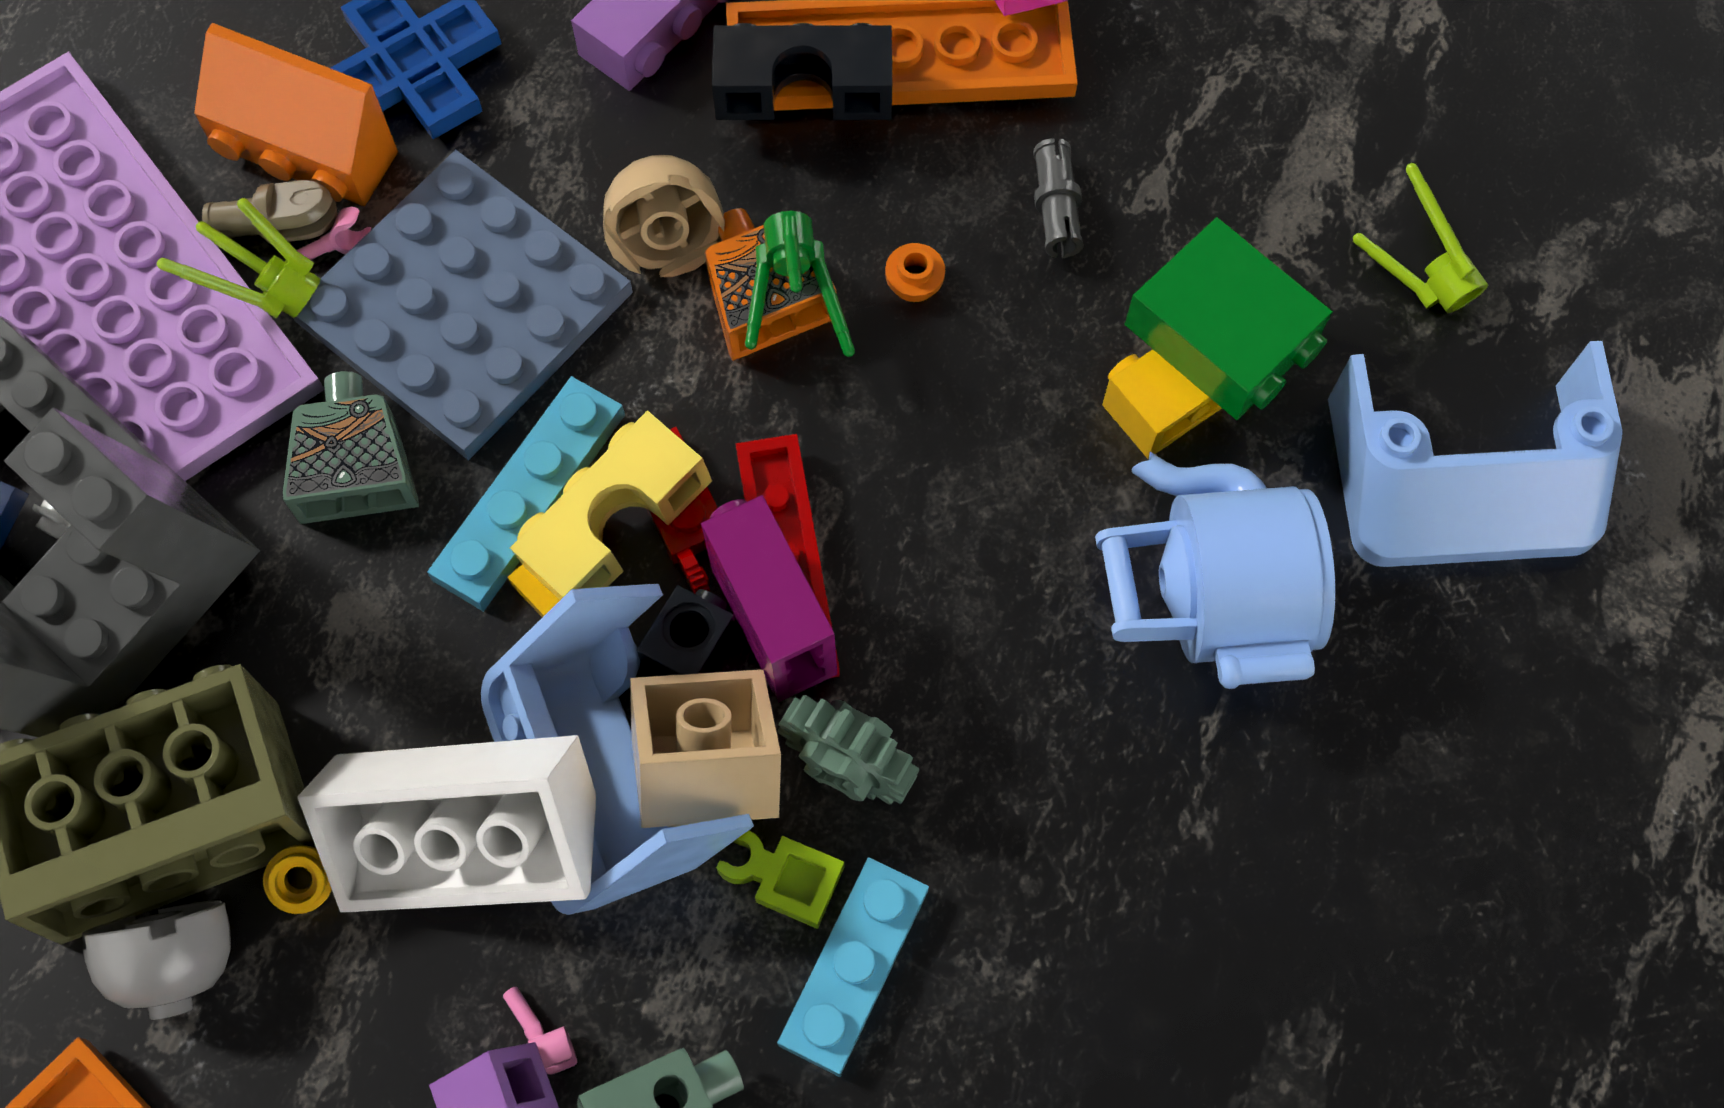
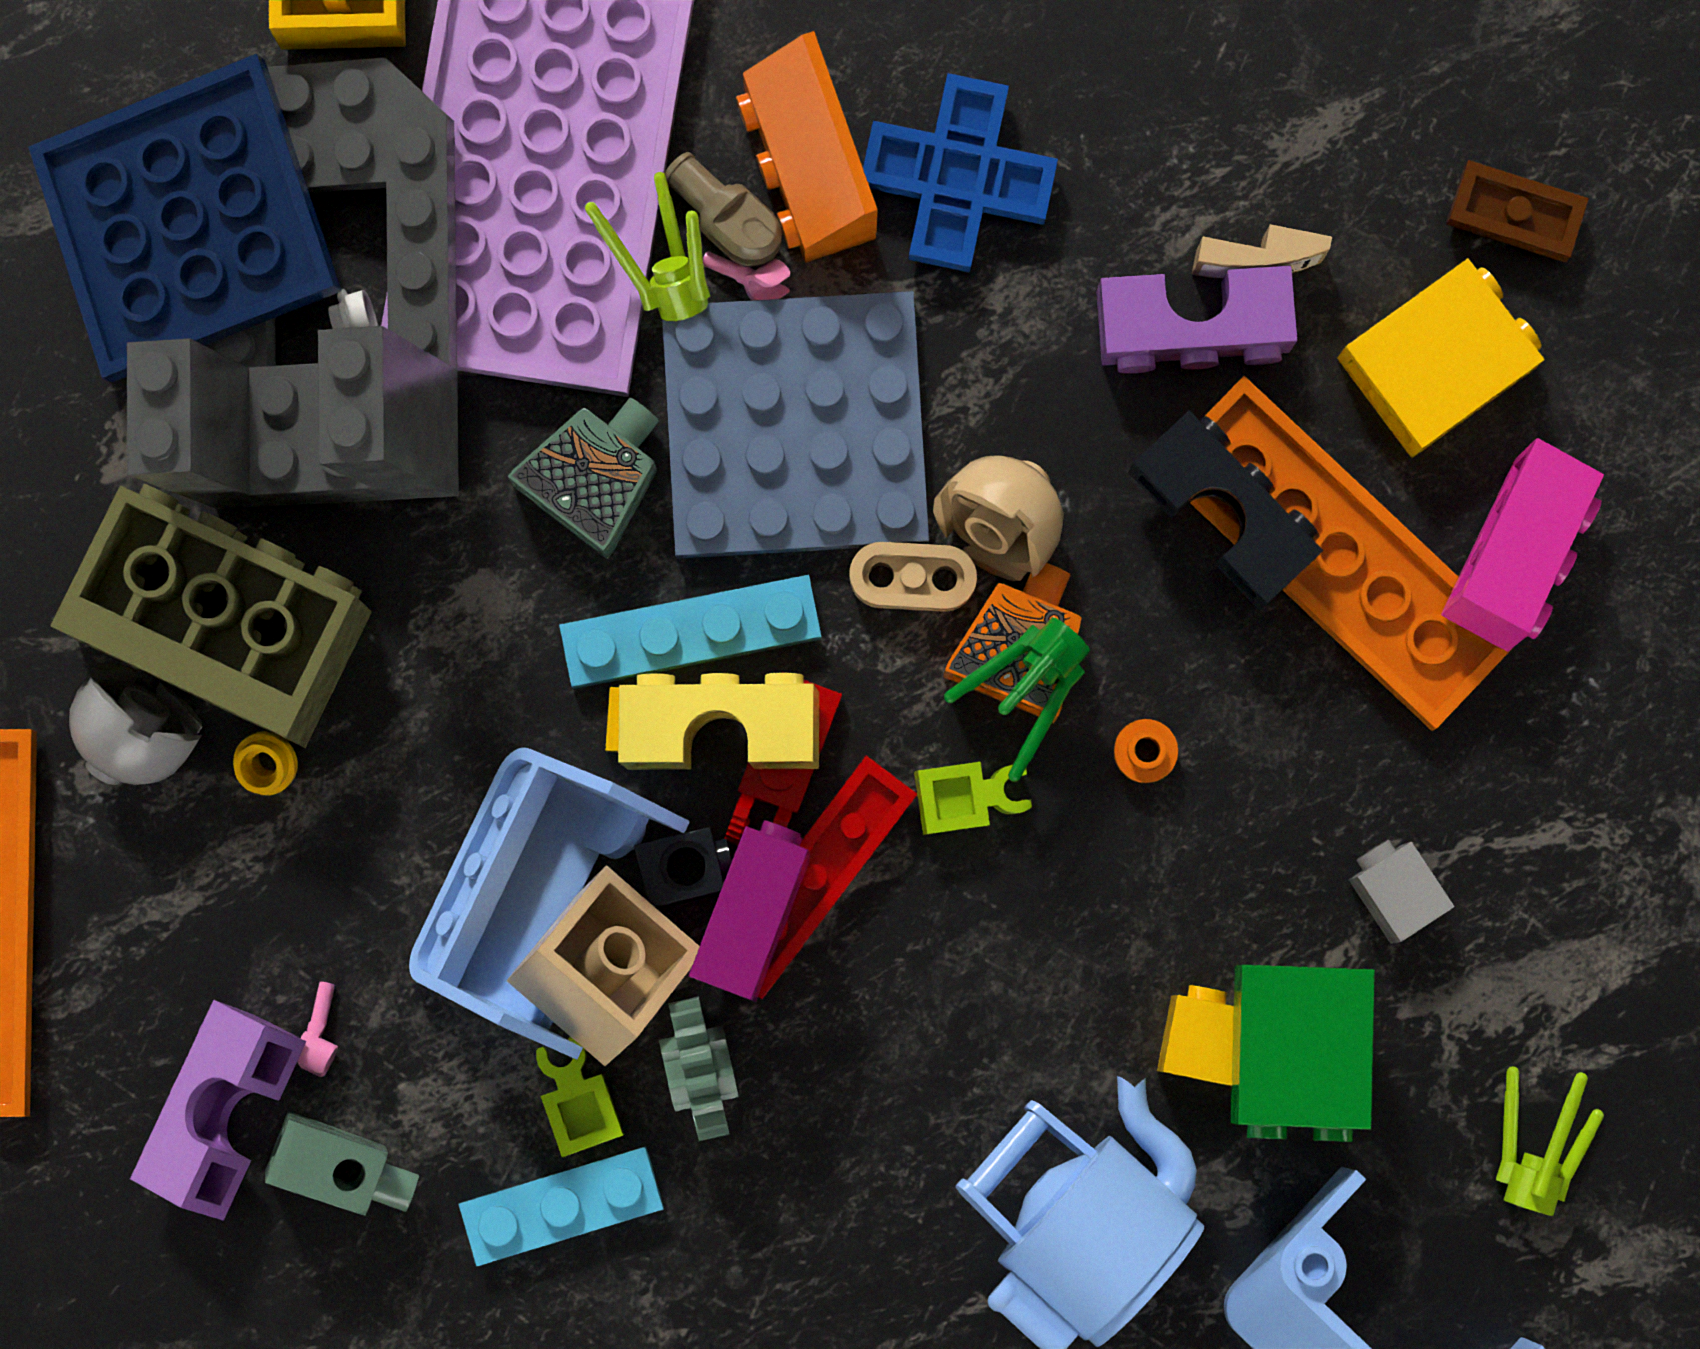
camera: 45 degrees right, 15 degrees up
(455, 824) = (394, 843): white slope -> none
(638, 311) = (913, 573): none -> tan plate
(830, 412) = (959, 797): none -> lime plate
(1058, 198) = (1317, 804): dark grey pin -> none
(1167, 194) = (1399, 890): none -> light grey brick

